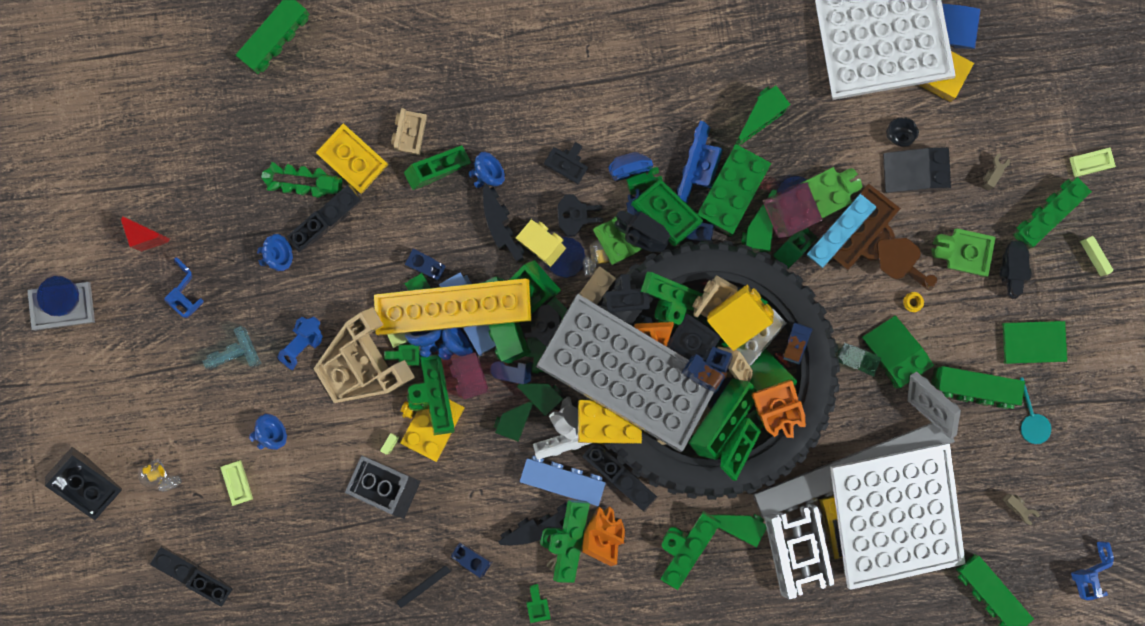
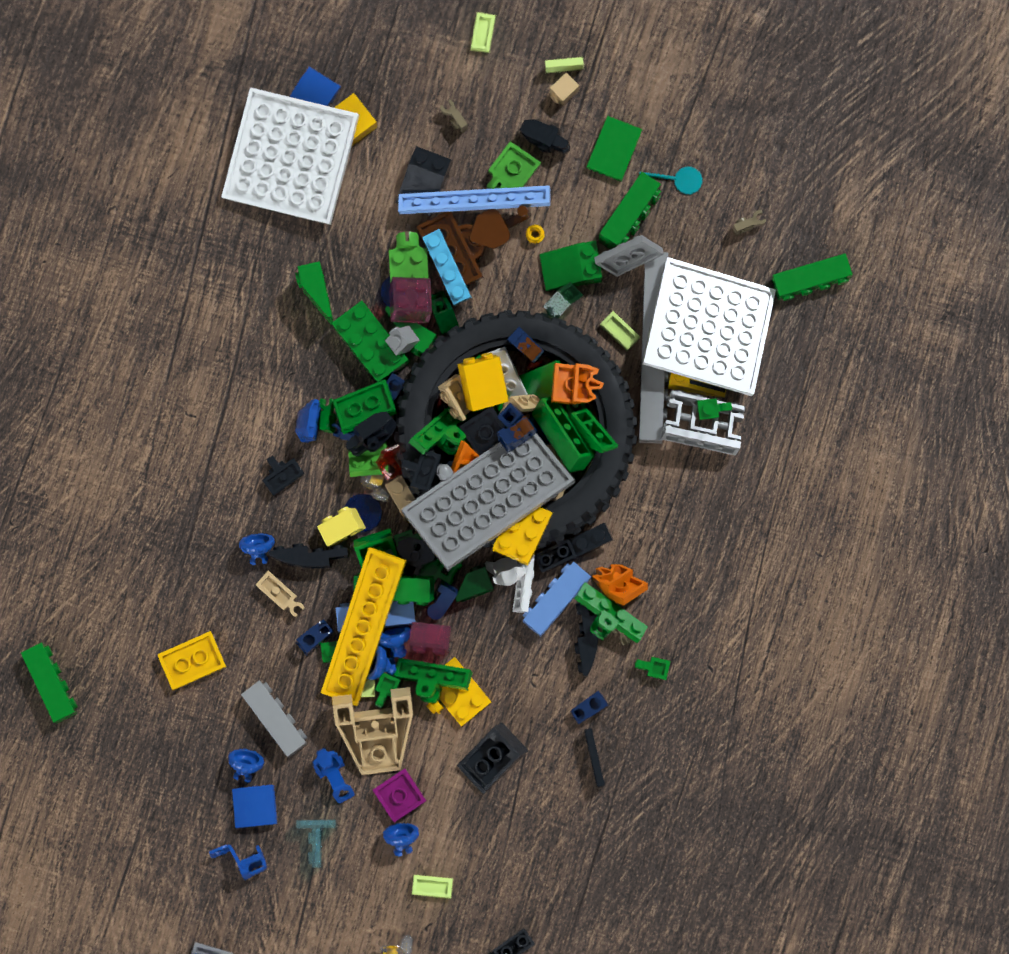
camera: 65 degrees left, 5 degrees down
(141, 237) = (177, 872): red slope -> none
(239, 280) = (254, 806): none -> blue slope
(308, 413) = (399, 795): none -> magenta plate
(324, 184) = (203, 693): green sword -> none
(325, 219) = (234, 707): black slope -> none
(330, 261) = (274, 719): none -> light grey brick
(389, 444) = (457, 734): yellowish green tile -> none
(409, 132) = (191, 599): tan bracket -> none
(436, 167) = (233, 589): green slope -> none
(452, 212) = (278, 593): none -> tan plate
(513, 422) = (486, 619): dark green slope -> none
(578, 215) = (331, 485): black hinge -> none
(626, 257) = (387, 458): none -> clear red bracket
(634, 319) = (444, 472): none -> light grey hinge
(687, 548) = (660, 517): green plate -> none
(701, 163) = (335, 360): blue bracket -> none
(743, 526) = (664, 461): green slope -> none
(748, 219) = (402, 340): none -> light grey brick
(815, 552) = (709, 408): none -> green plate
(854, 427) = (619, 331): none -> yellowish green tile
(902, 132) = (385, 178): black hair -> none
(921, 228) = (474, 199): none -> light blue plate
(1052, 213) = (511, 85): green brick -> none
(1071, 267) = (563, 89): none -> tan brick
(1090, 575) = (829, 190): blue piece -> none

